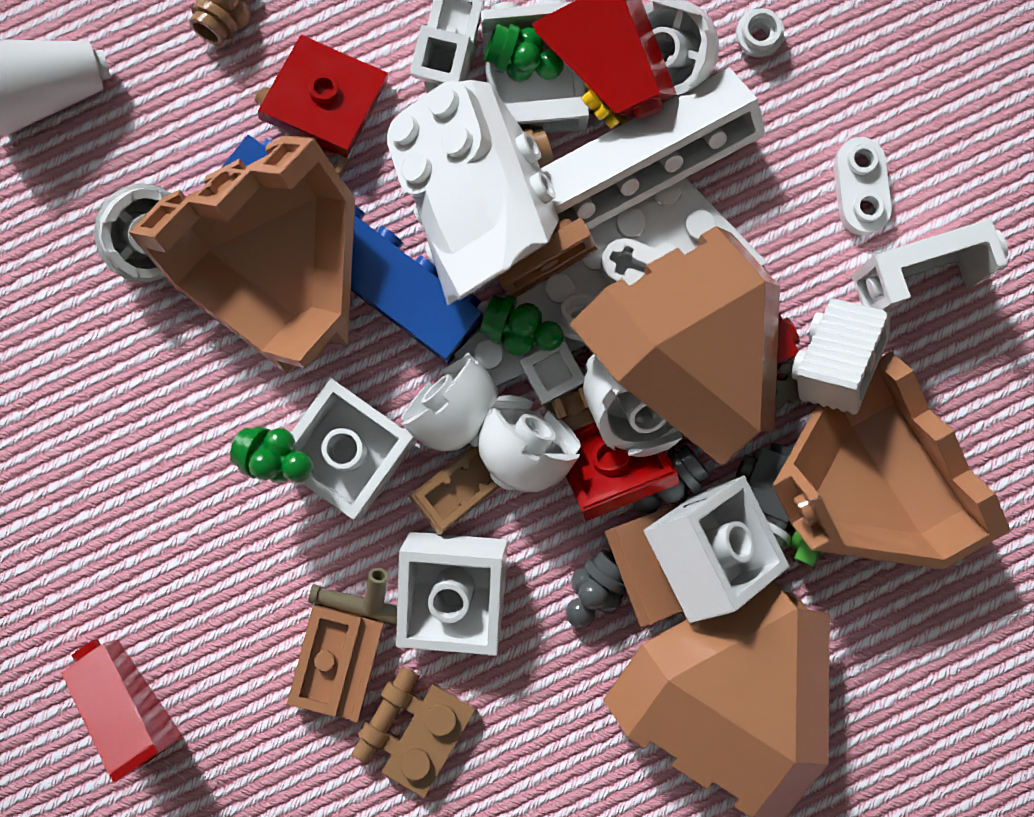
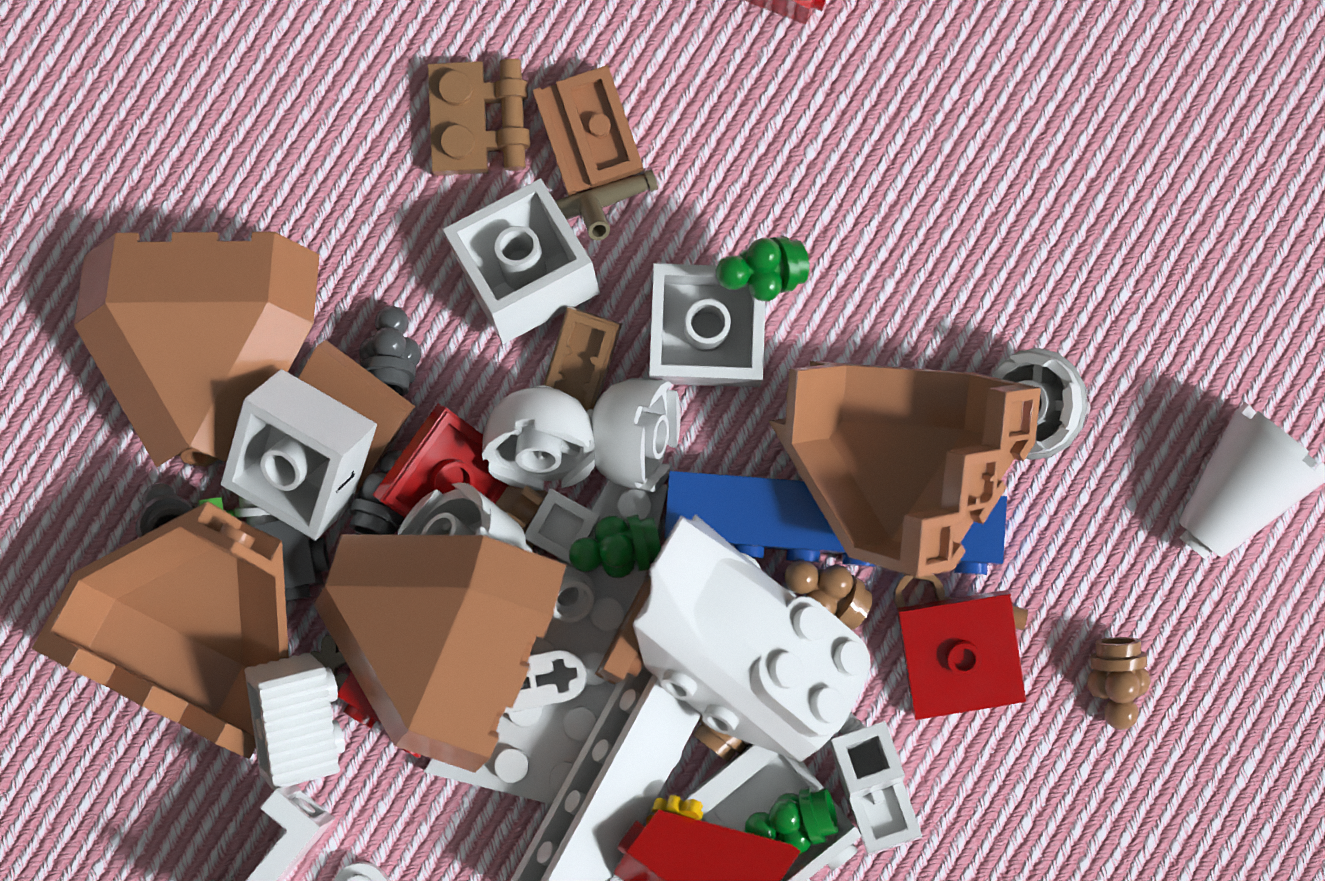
camera: 145 degrees right, 0 degrees up
(386, 198) = (833, 588): none -> medium nougat piece
(845, 574) = (159, 508): none -> dark grey piece

